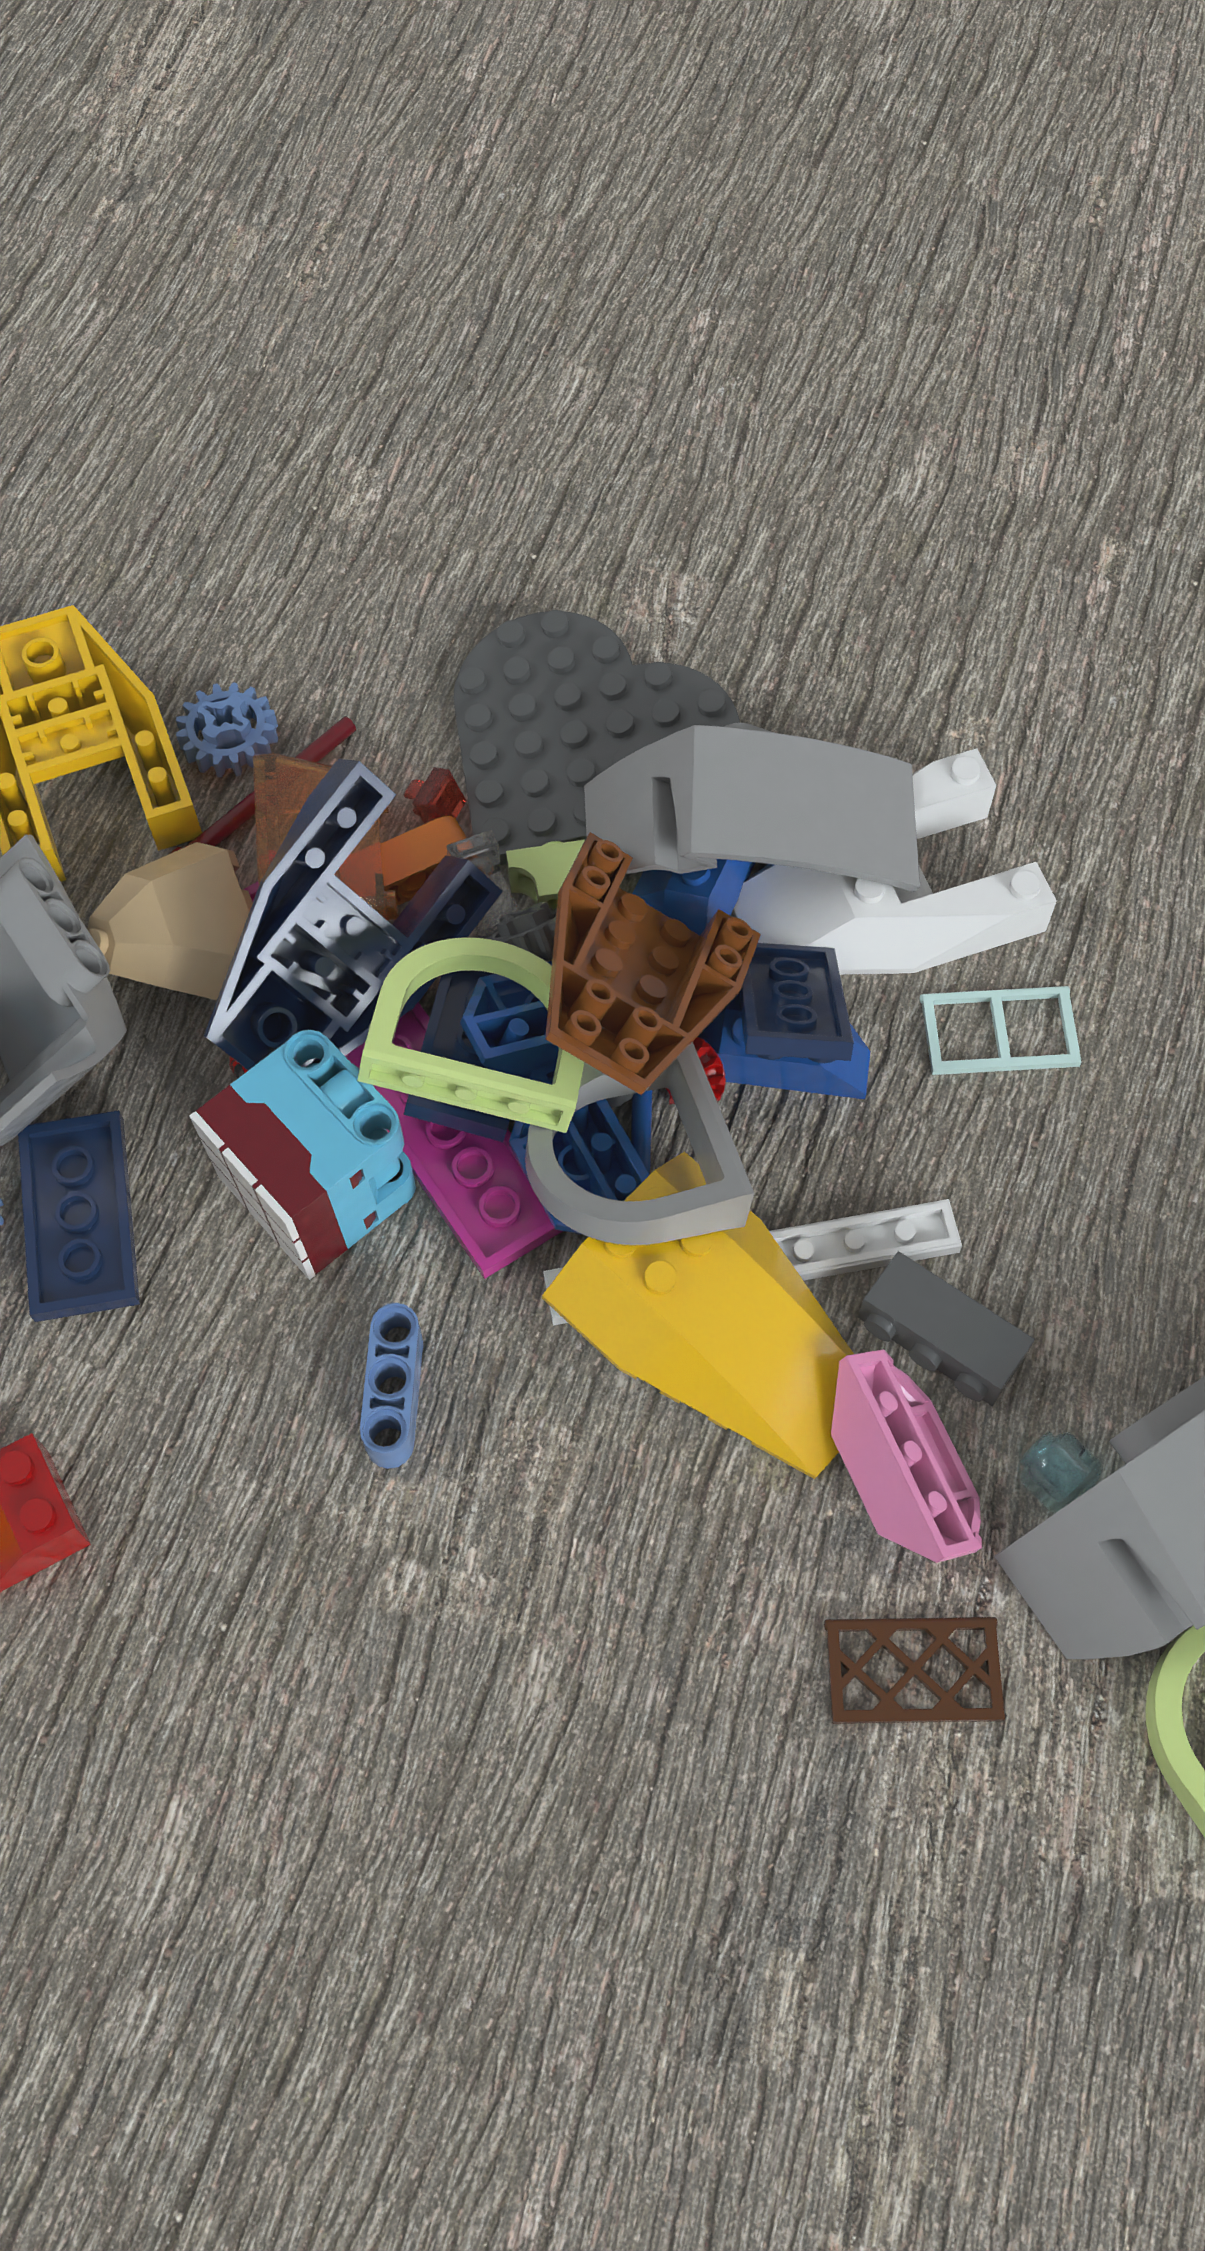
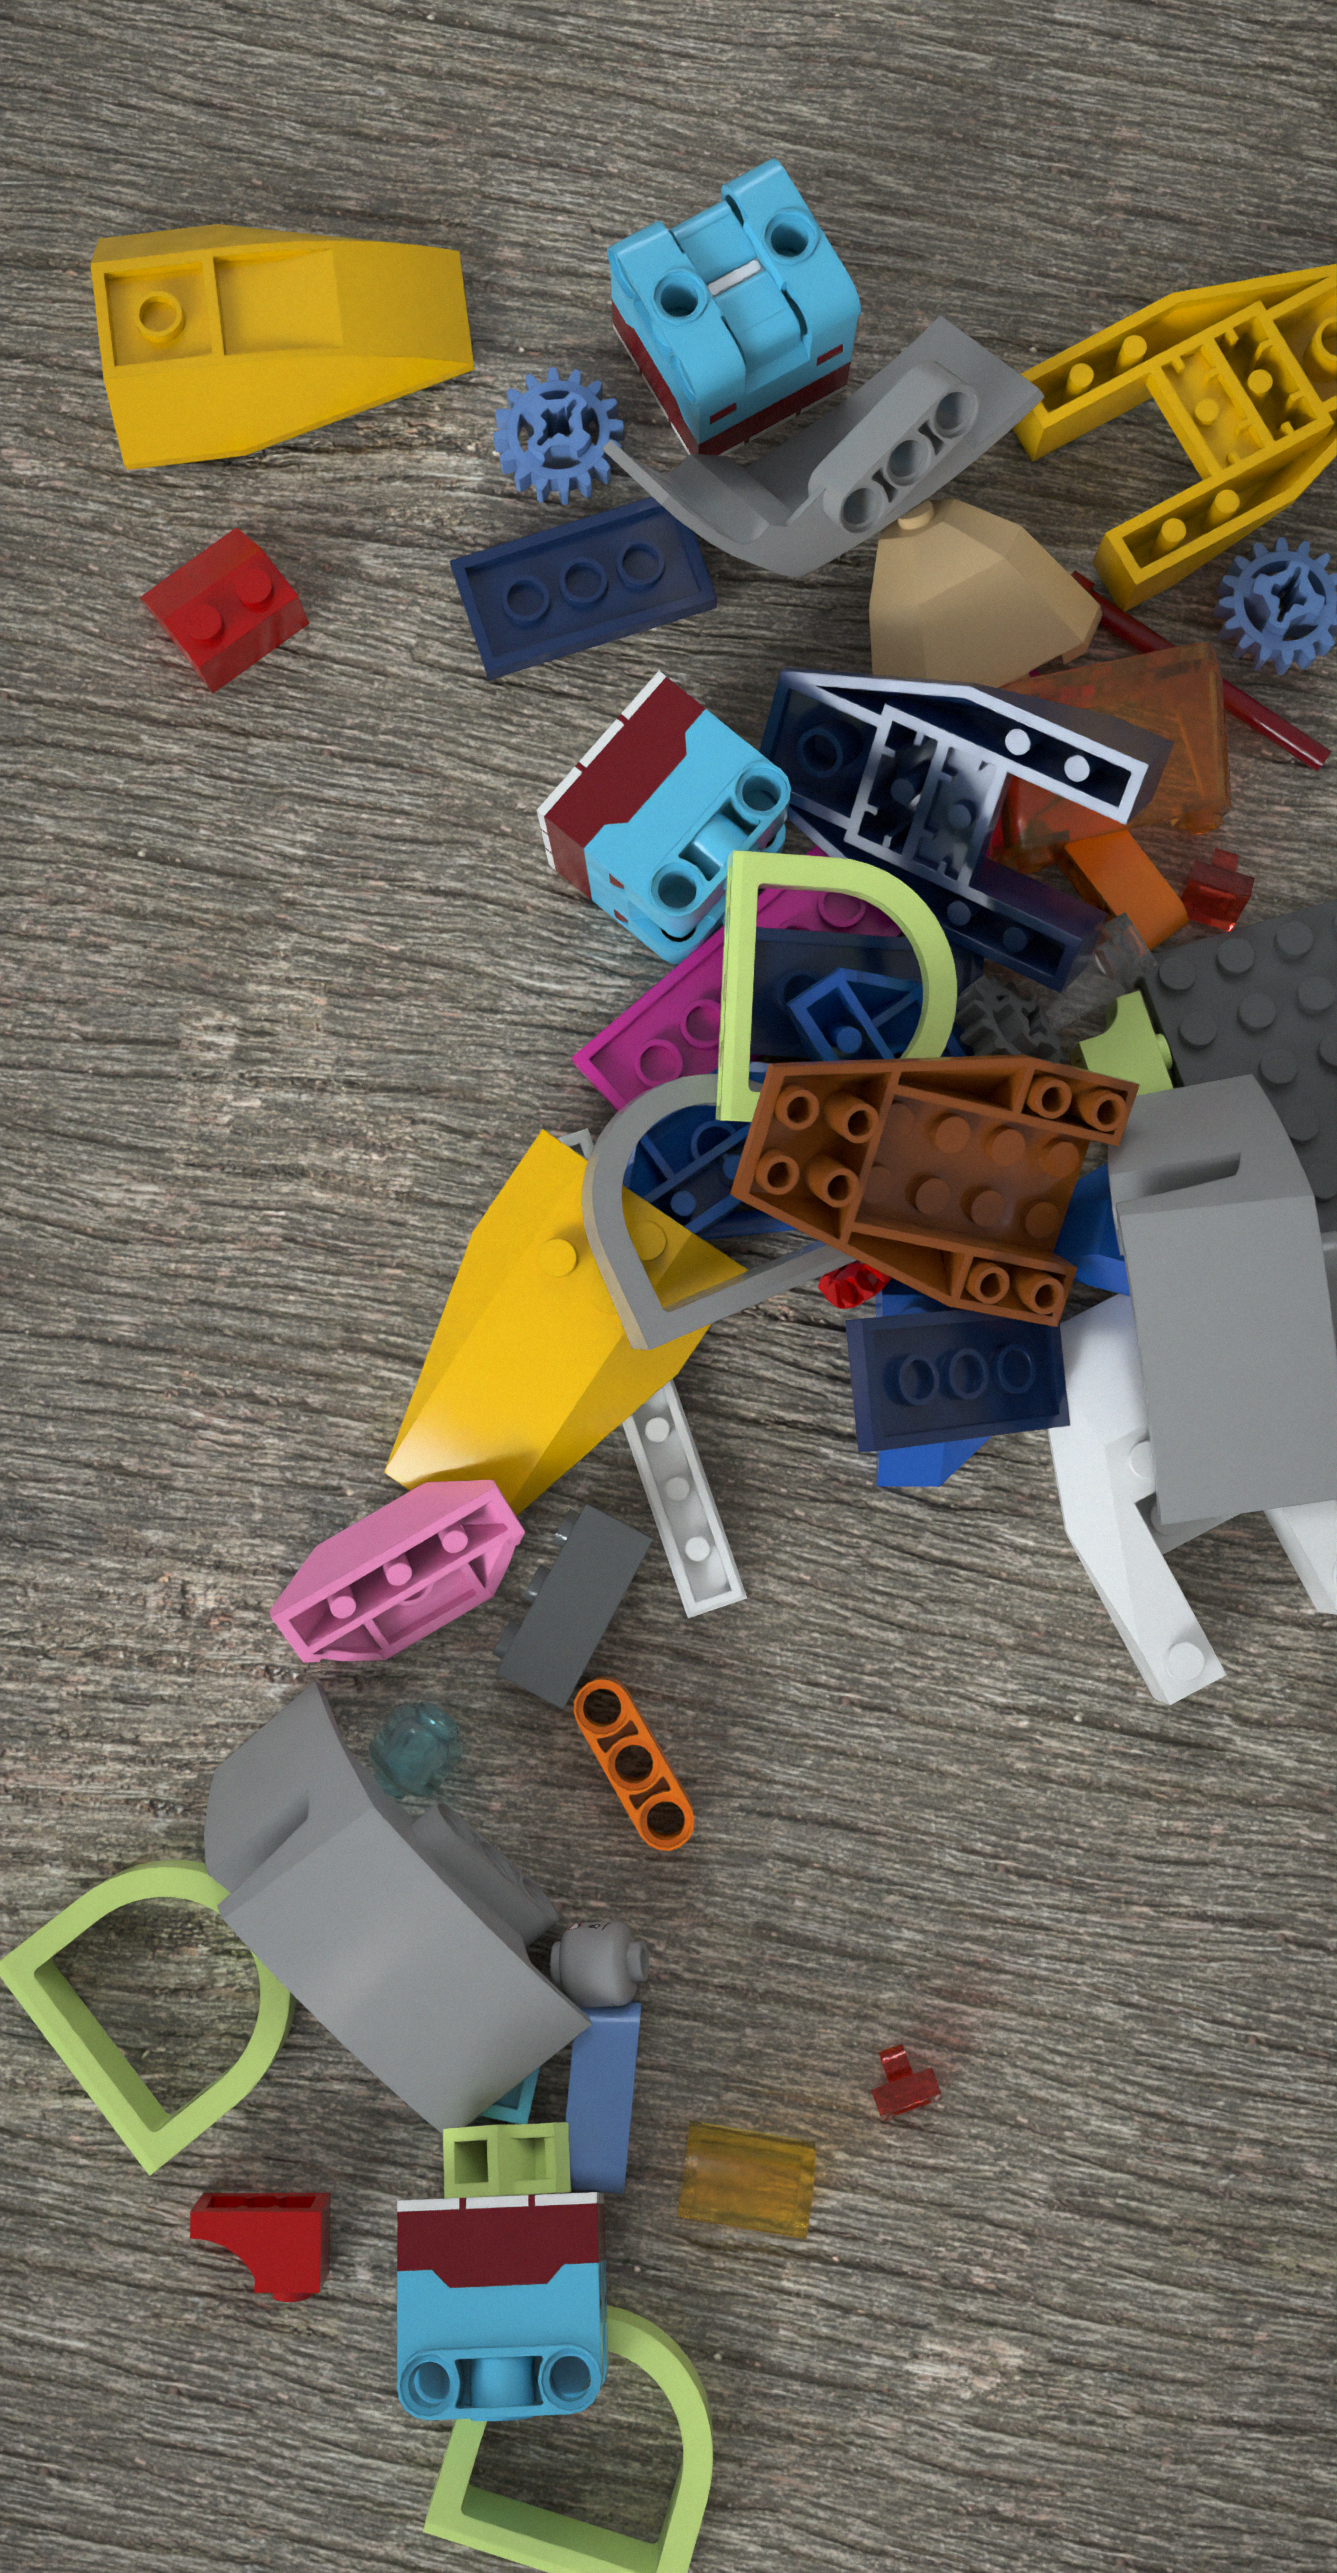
camera: 80 degrees right, 20 degrees up
(387, 1361) = (394, 966): medium blue beam -> none
(888, 1709) = (136, 1575): reddish brown window -> none
(1005, 1061) = (1043, 1638): light aqua window -> none
(1093, 1281) = (639, 1793): none -> orange beam

